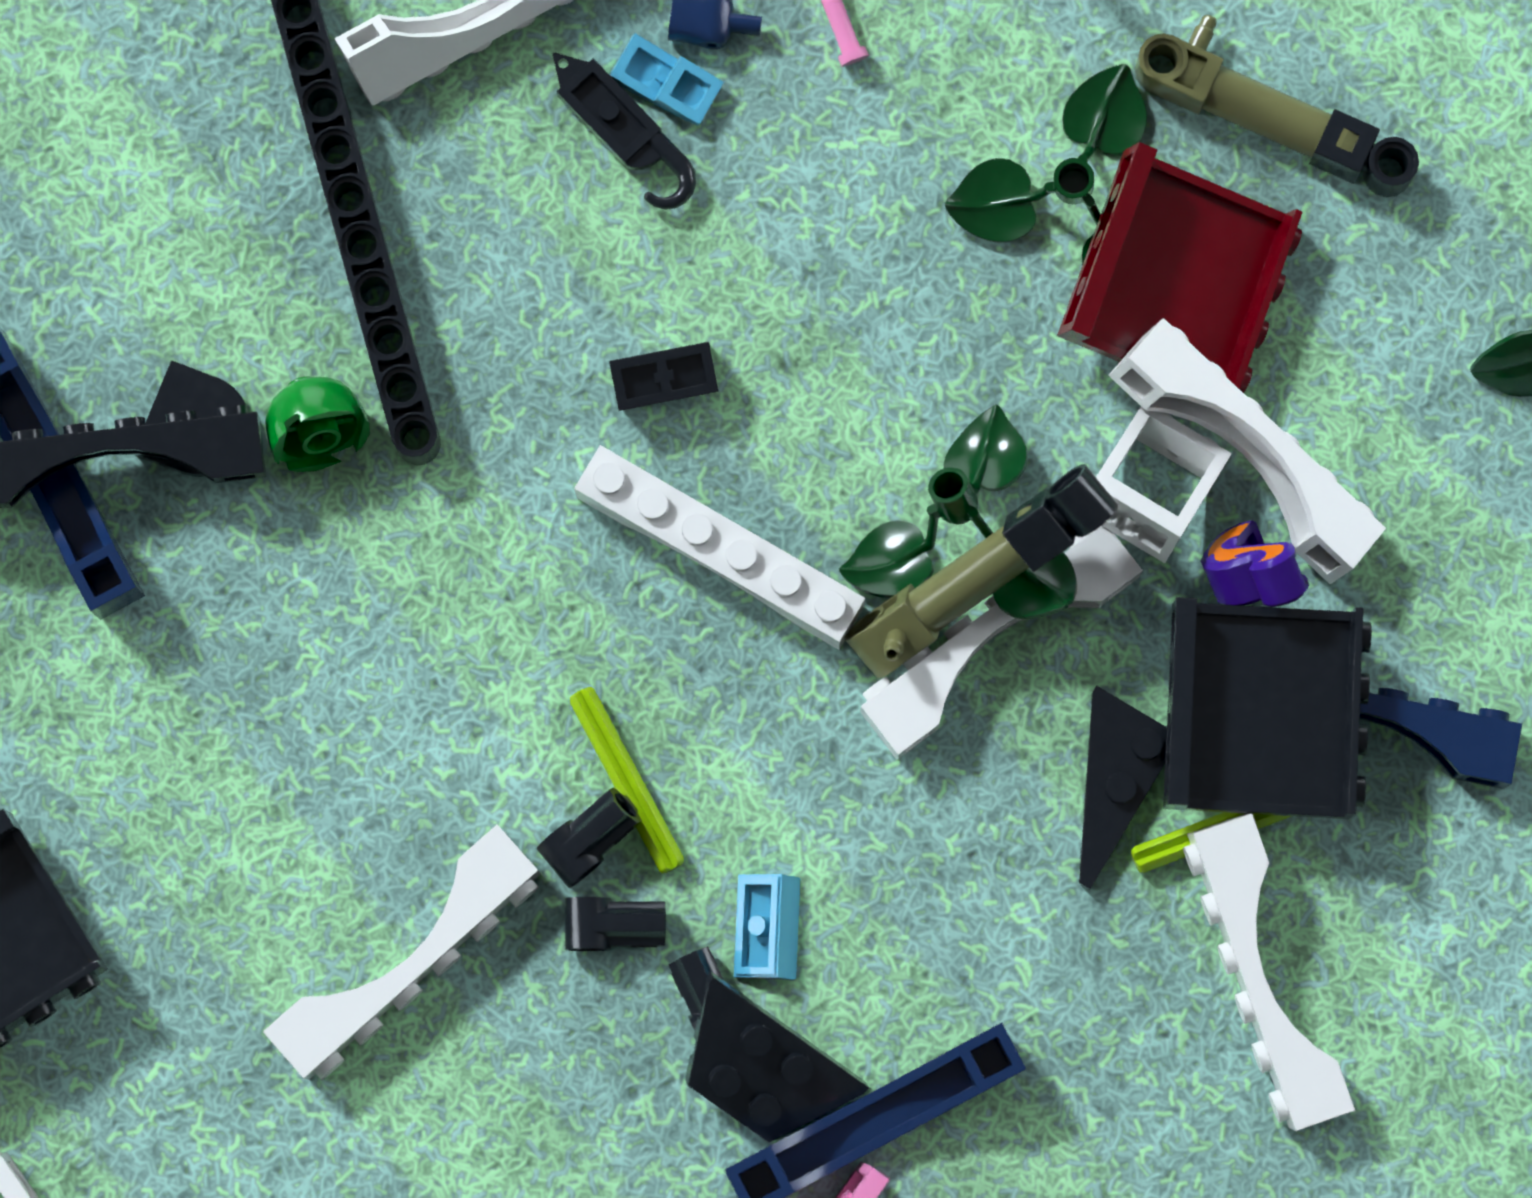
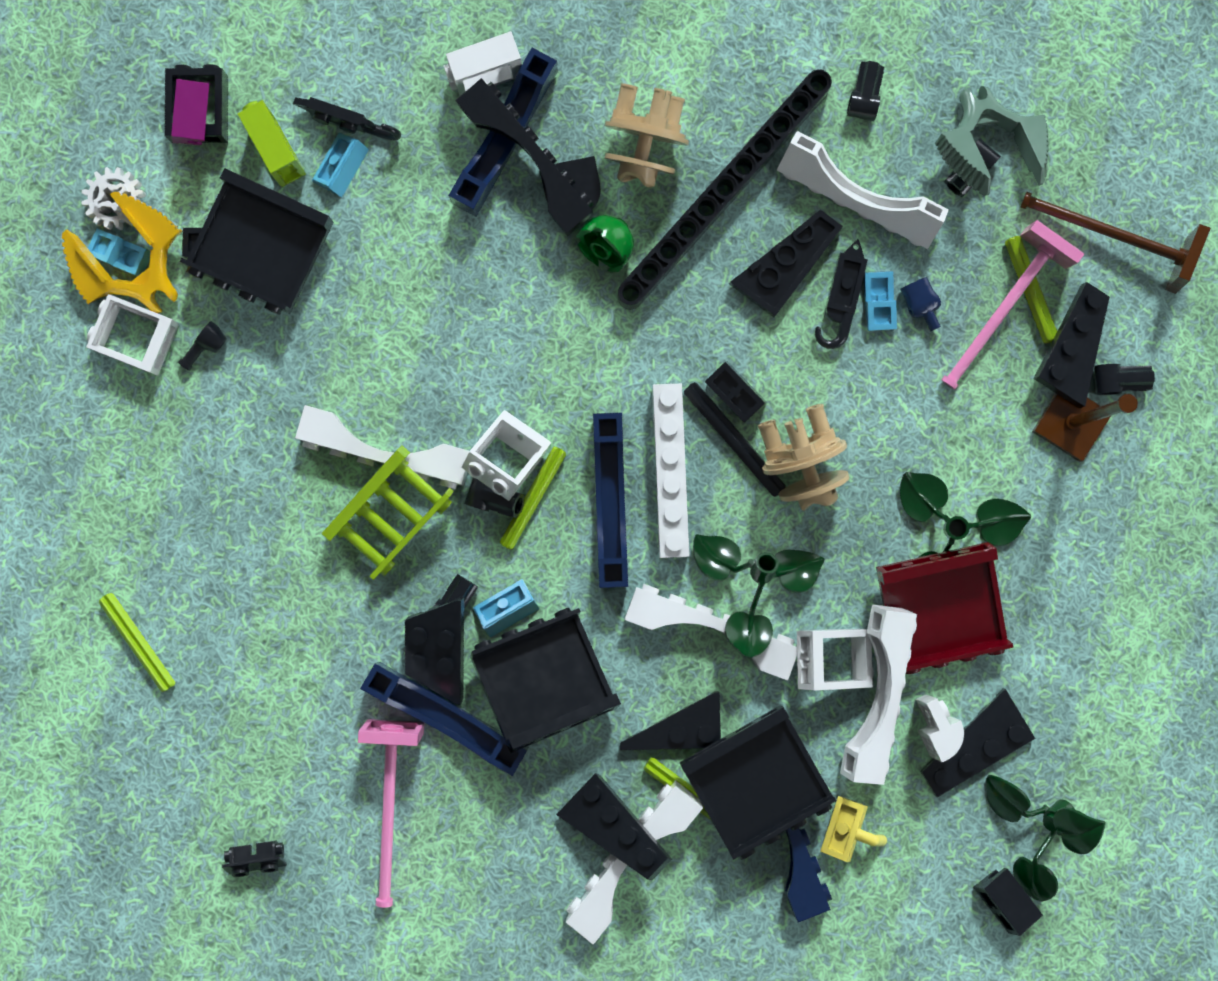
camera: 50 degrees right, 5 degrees up
(66, 1117) = (210, 339): none -> black bar
(194, 233) = (659, 125): none -> tan piece
(459, 993) = (361, 507): none -> lime fence
(502, 751) = (507, 429): none -> white window
(524, 189) = (781, 270): none -> black wing
(604, 924) = (458, 531): black piece -> none
(705, 665) = (610, 500): none -> dark blue arch
(733, 423) = (733, 437): none -> black axle
(823, 333) = (804, 455): none -> tan piece
(910, 934) = (542, 679): none -> black panel
(1027, 540) = (765, 618): olive piece -> none
(1192, 967) = (612, 825): none -> black wing
(1250, 571) = (819, 732): dark purple animal -> none
(1332, 141) = (1057, 640): olive piece -> none
(1364, 394) = (944, 733): none -> white brick
(1416, 349) = (987, 739): none -> black wing
(1420, 628) = (846, 830): none -> light yellow plate

